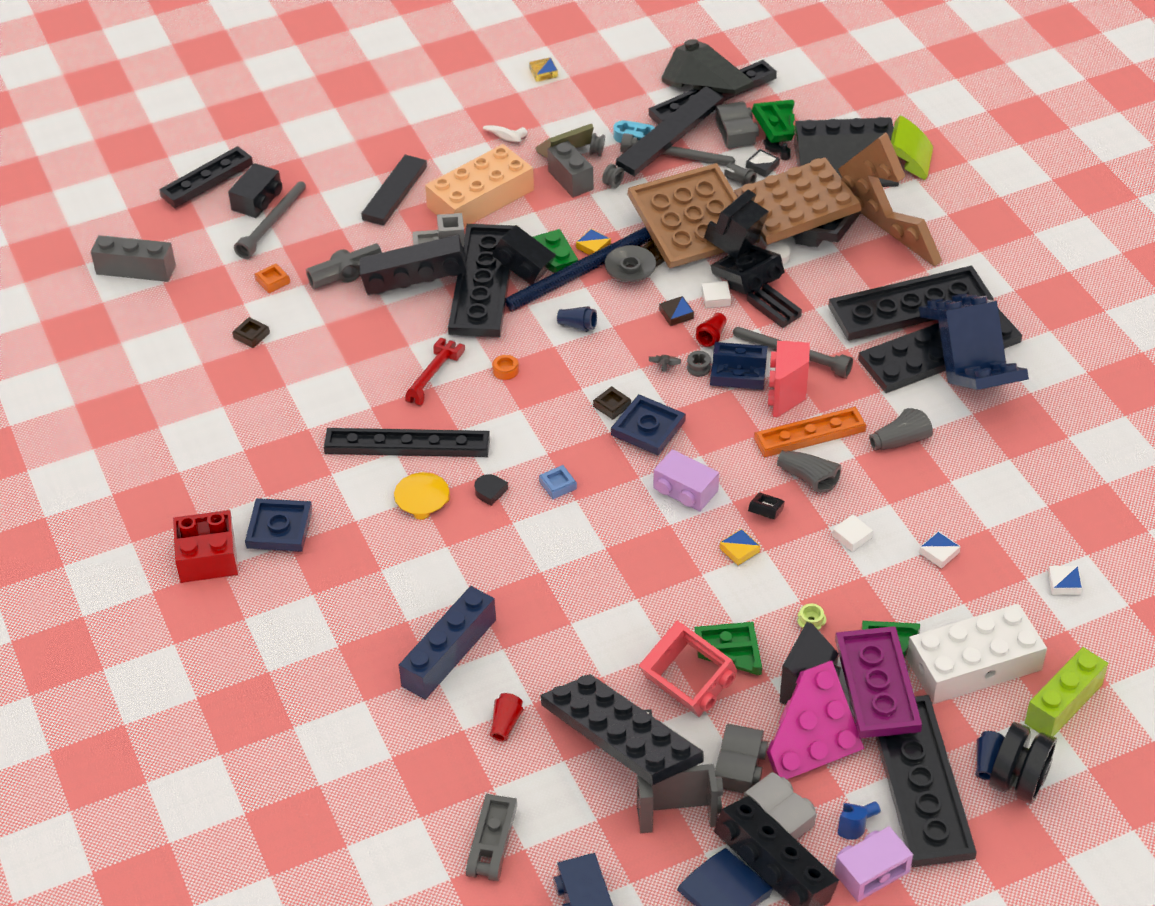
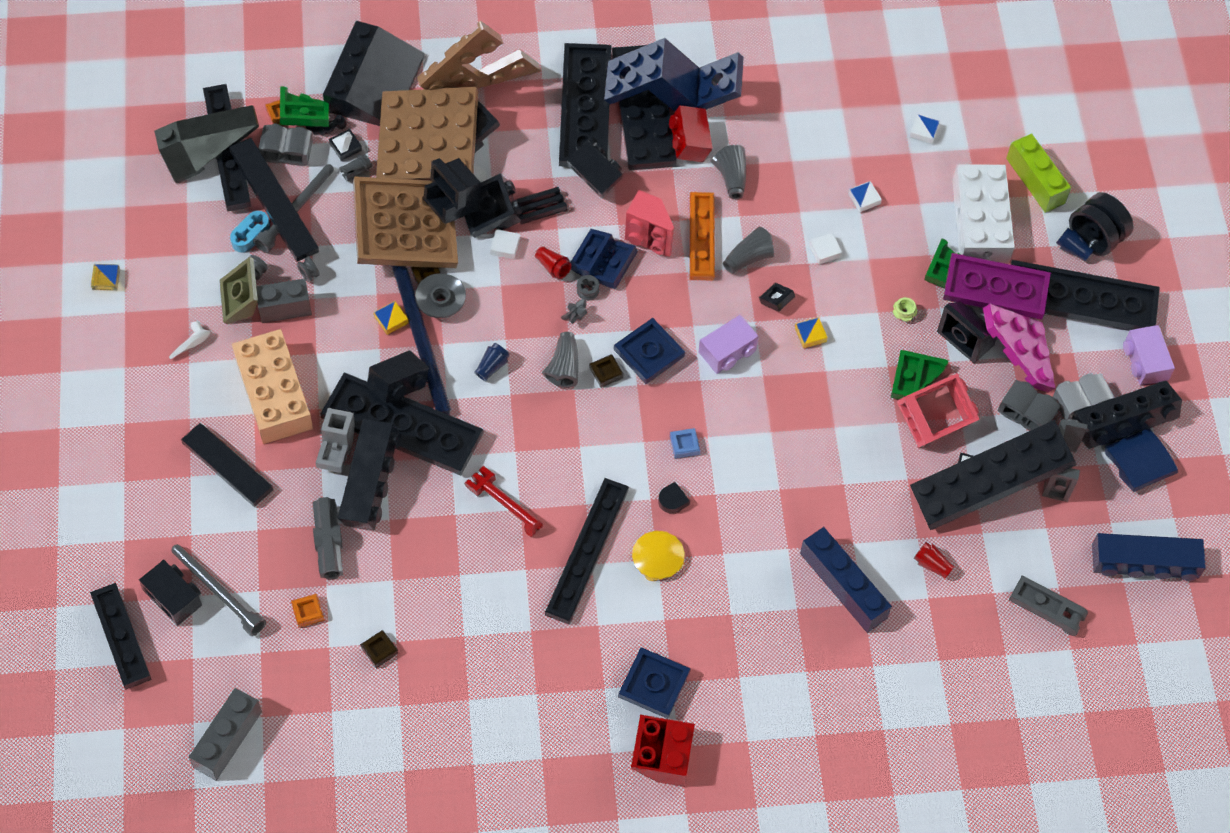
camera: 75 degrees left, 15 degrees up
(505, 367) = (524, 441): orange tile -> none
(557, 243) = (380, 349): green wing -> none
(604, 367) = (564, 365): none -> dark grey piece
(676, 310) = (512, 282): dark brown tile -> none
(830, 321) = (595, 168): none -> black brick
(839, 364) = (637, 182): dark grey piece -> none
(854, 818) = (1104, 350): blue piece -> none
(912, 146) = (394, 23): lime slope -> none
(922, 383) = (691, 134): none -> red brick

